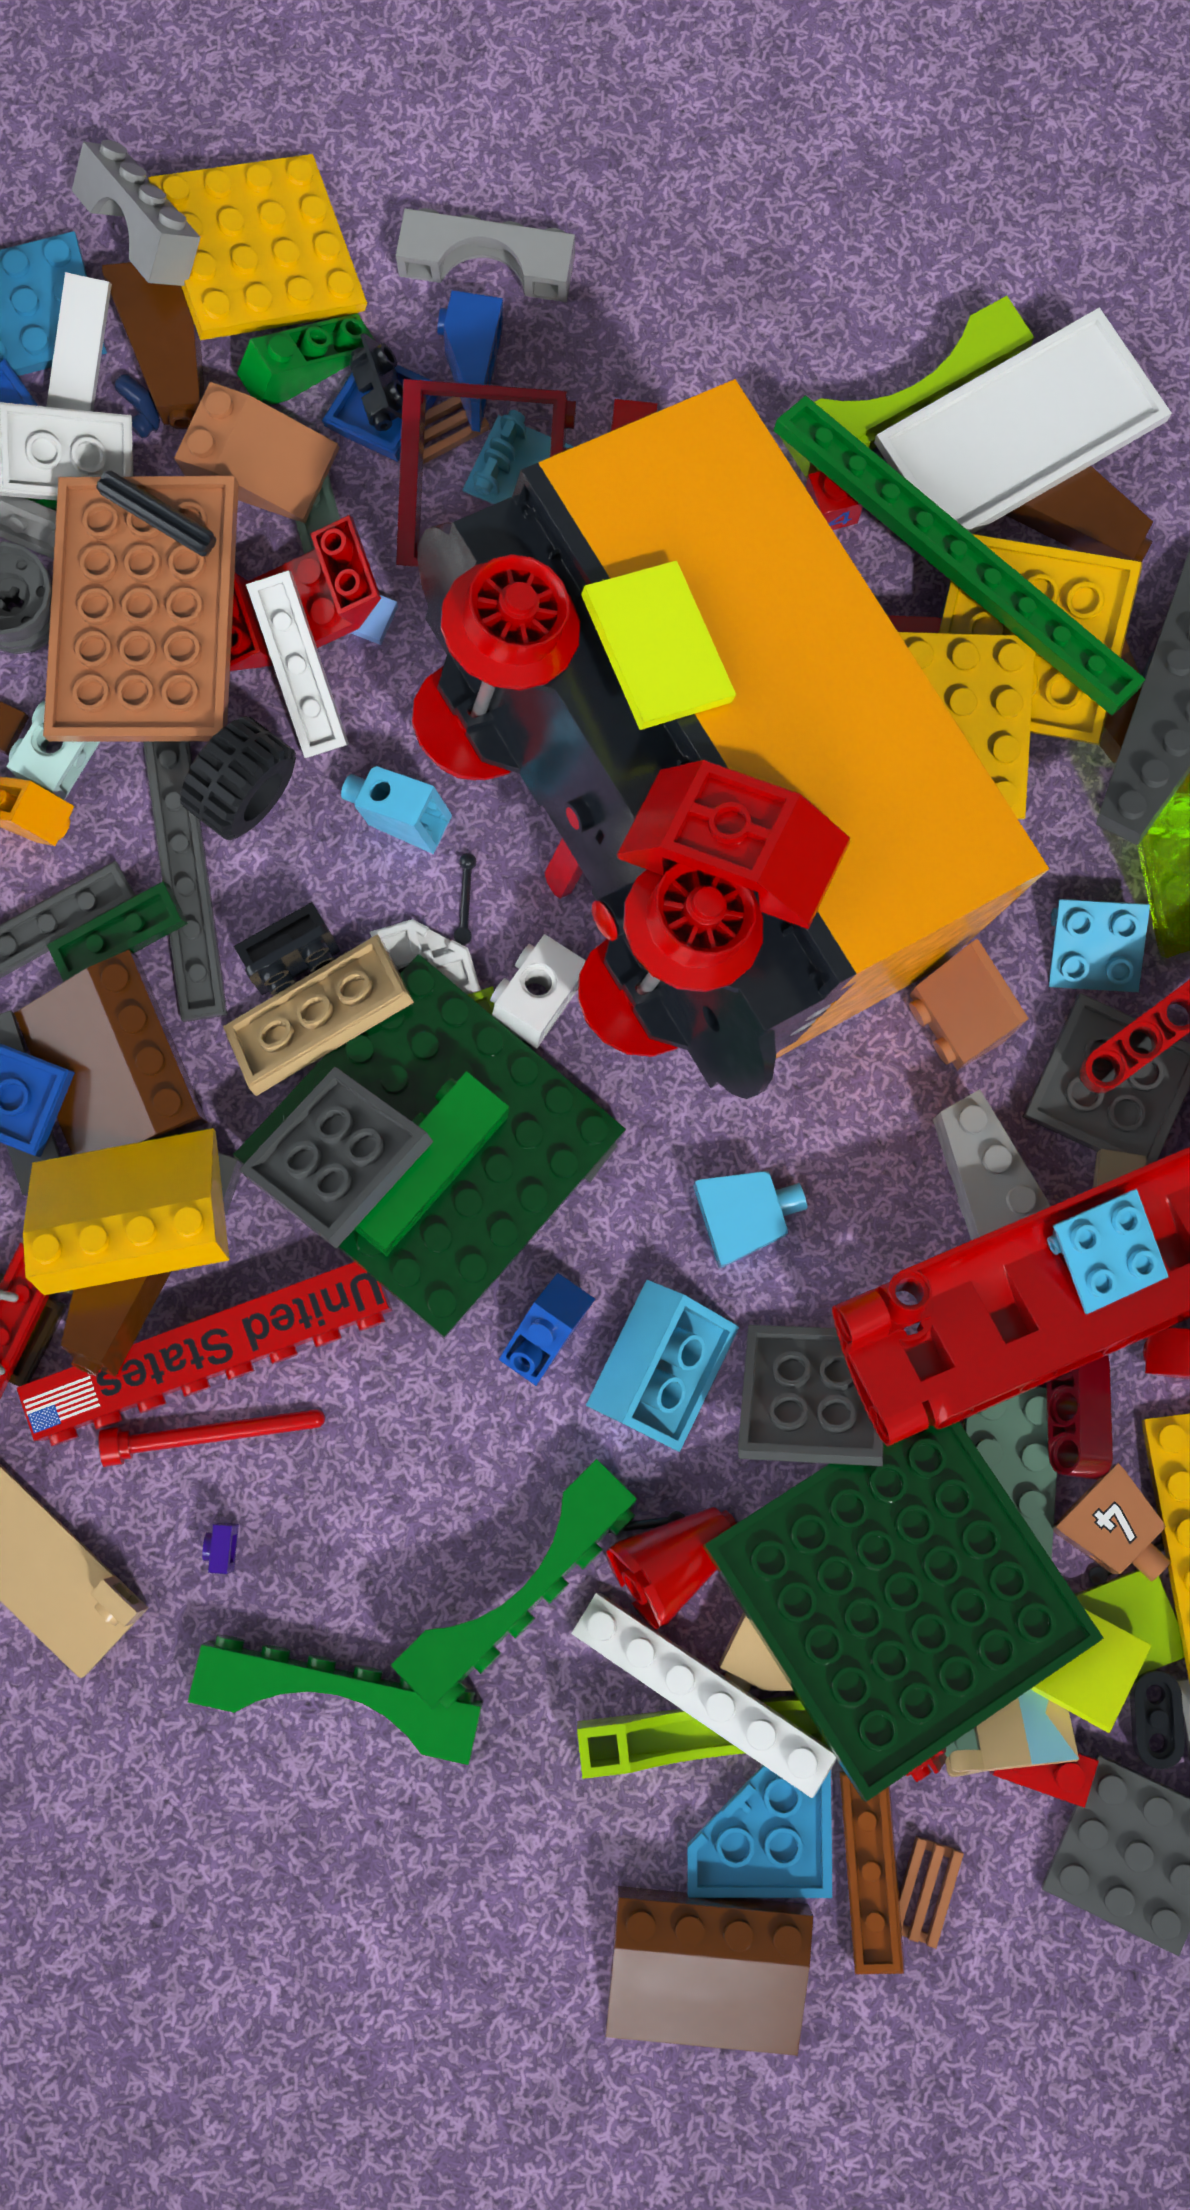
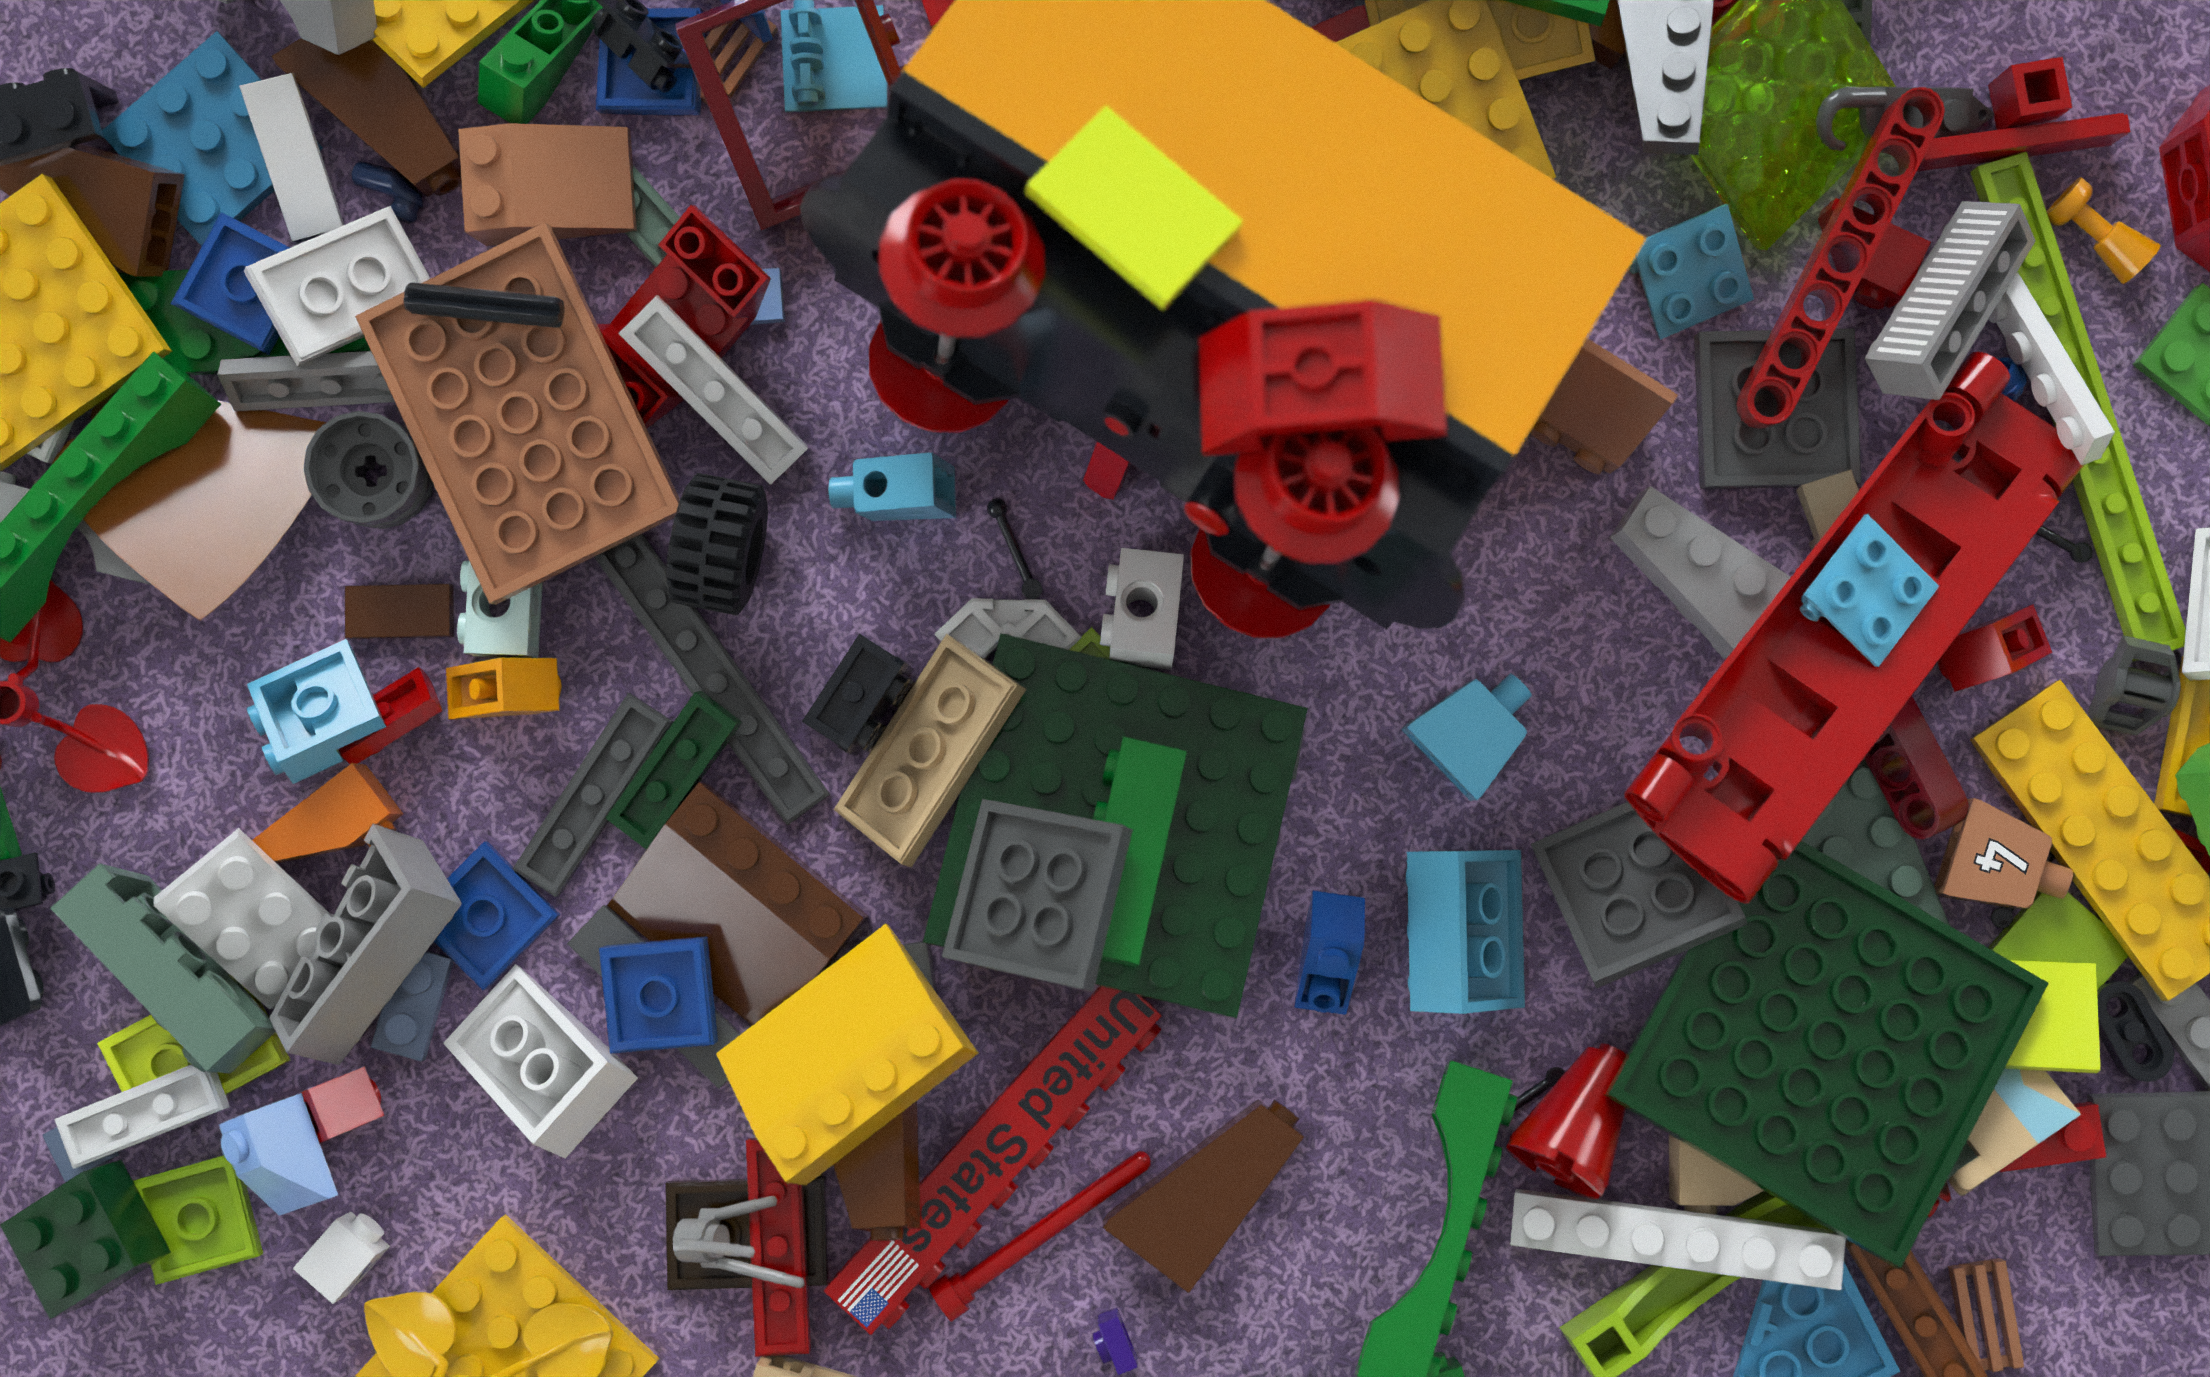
camera: 30 degrees left, 5 degrees up
(346, 1469) = (1203, 1197): none -> reddish brown slope

